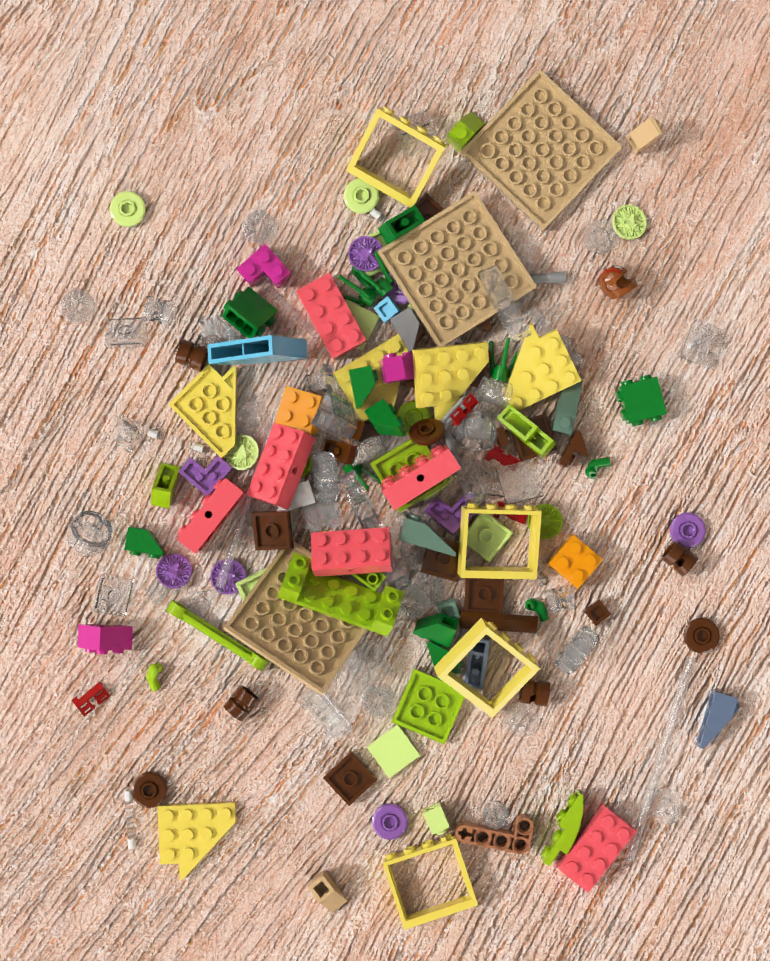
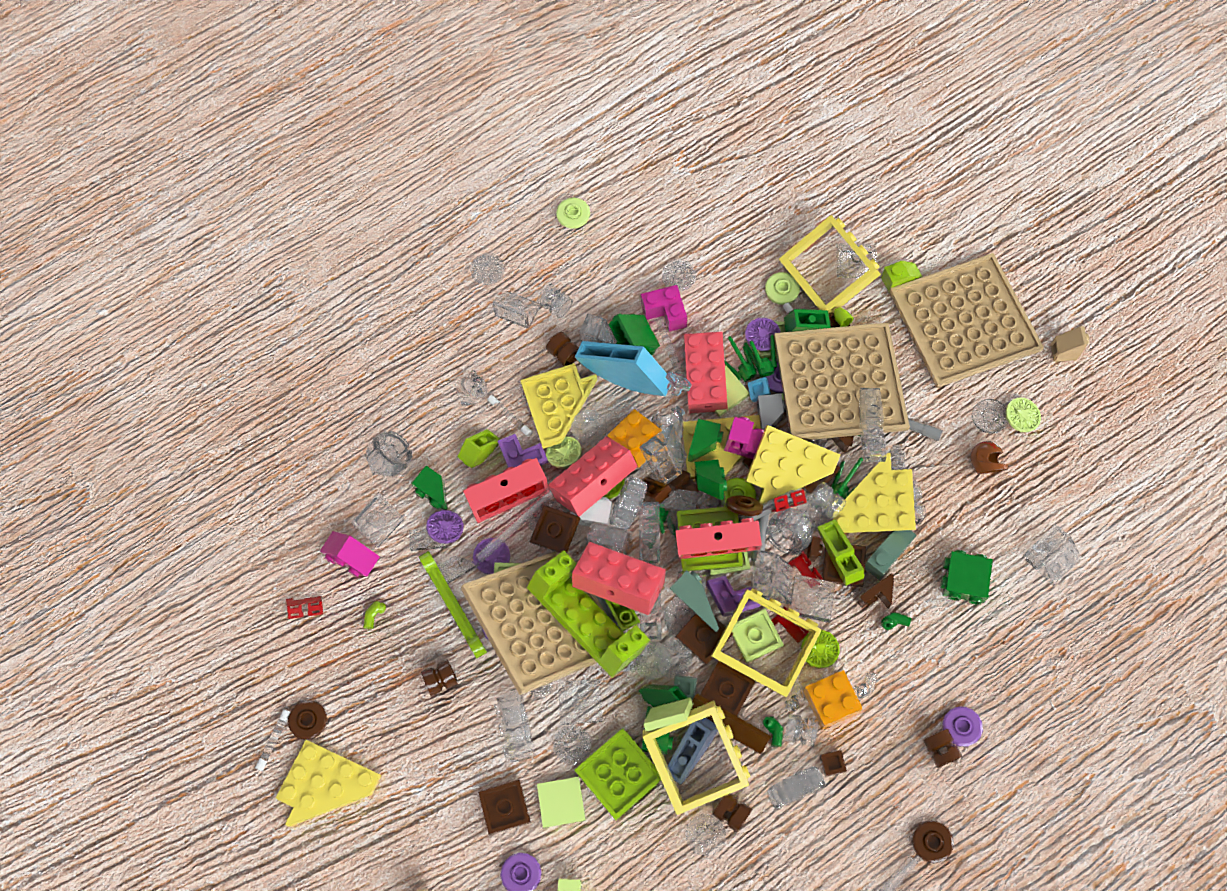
camera: 30 degrees right, 20 degrees down
(314, 342) = (677, 383): none -> clear tile
(430, 203) = (842, 317): none -> lime hose
(449, 647) = (668, 714): none -> yellowish green tile
(597, 537) = (866, 688): none -> clear arm

